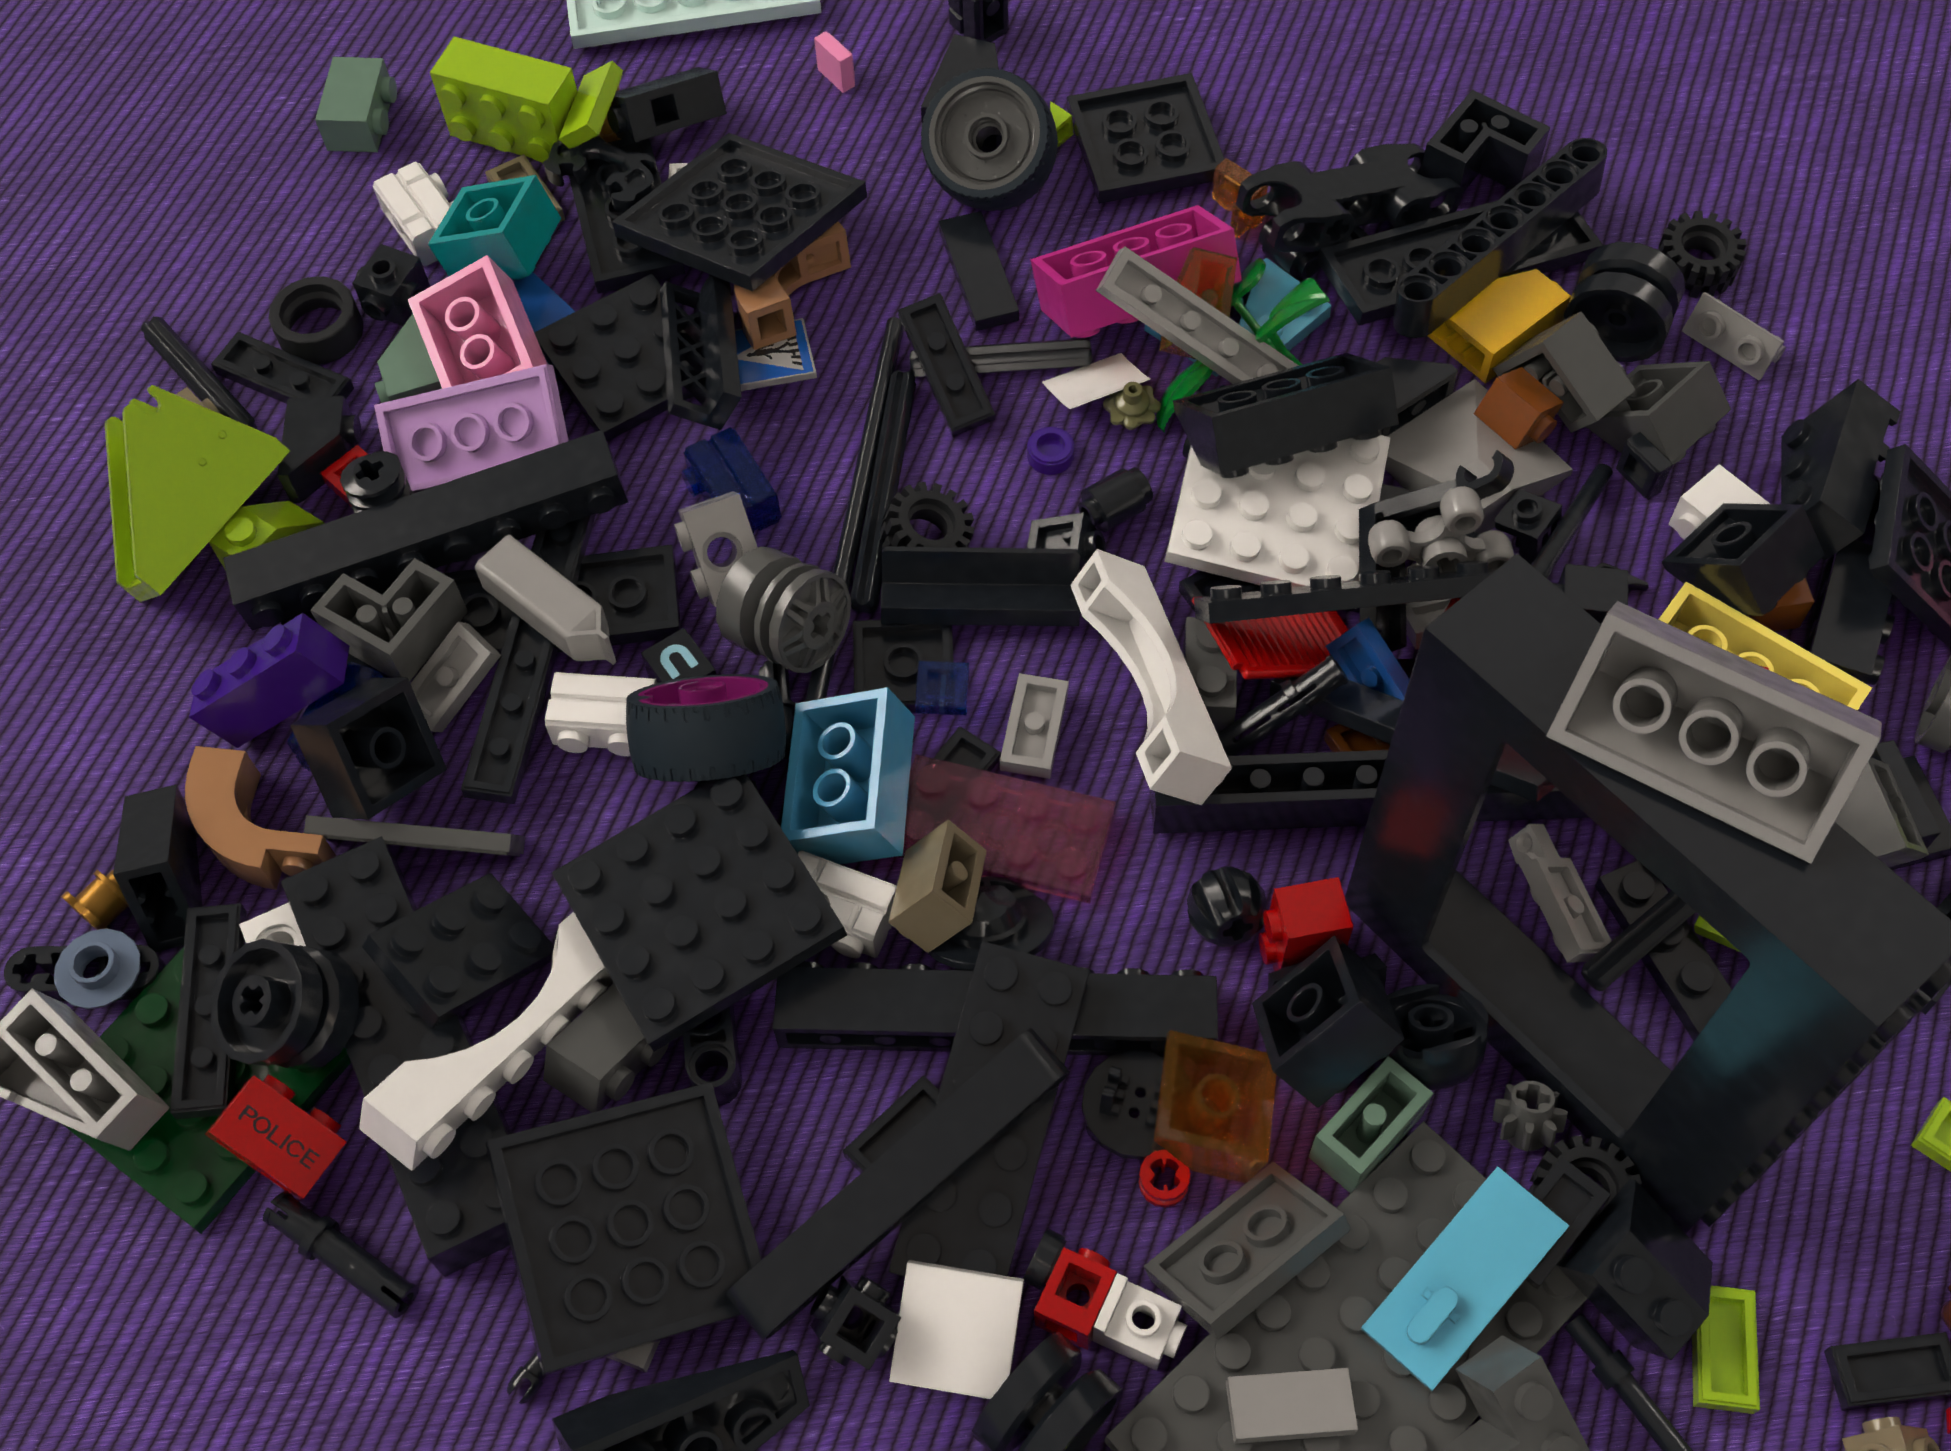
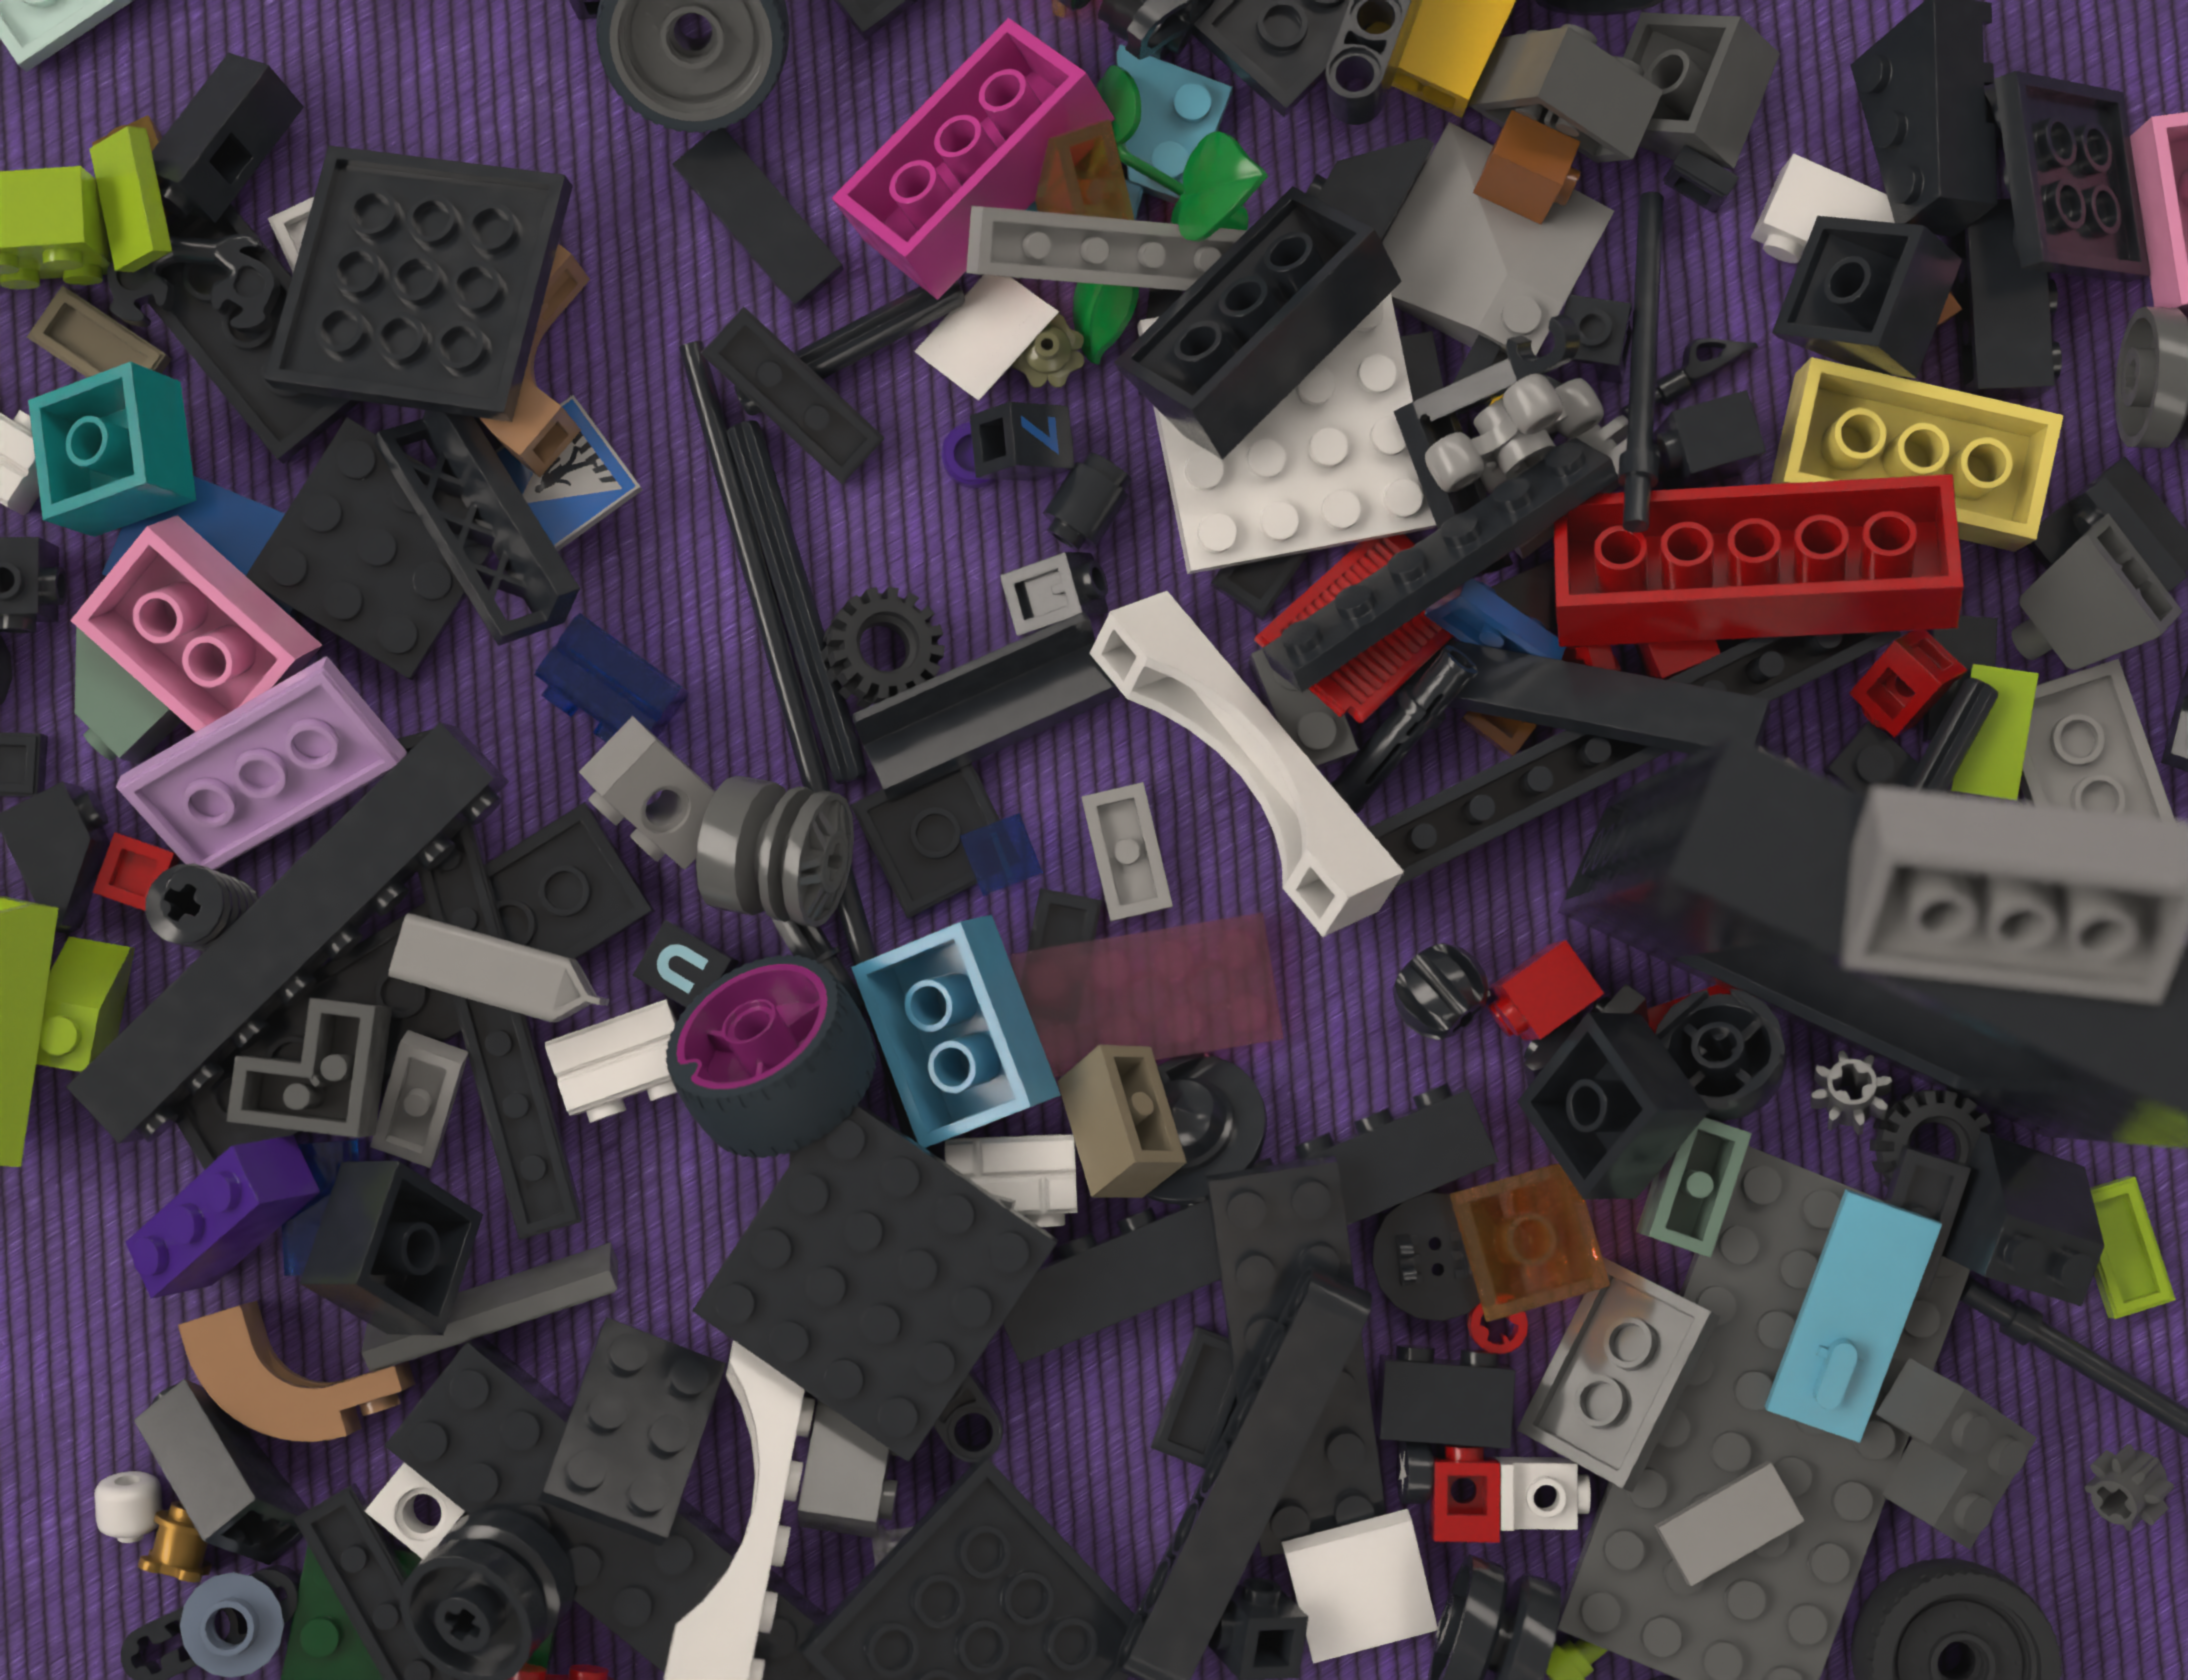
camera: 25 degrees left, 25 degrees up
(79, 861) = (127, 1505): none -> white piece
(1087, 442) = (1022, 441): none -> black brick
(1095, 1210) = (1445, 1398): none -> black brick

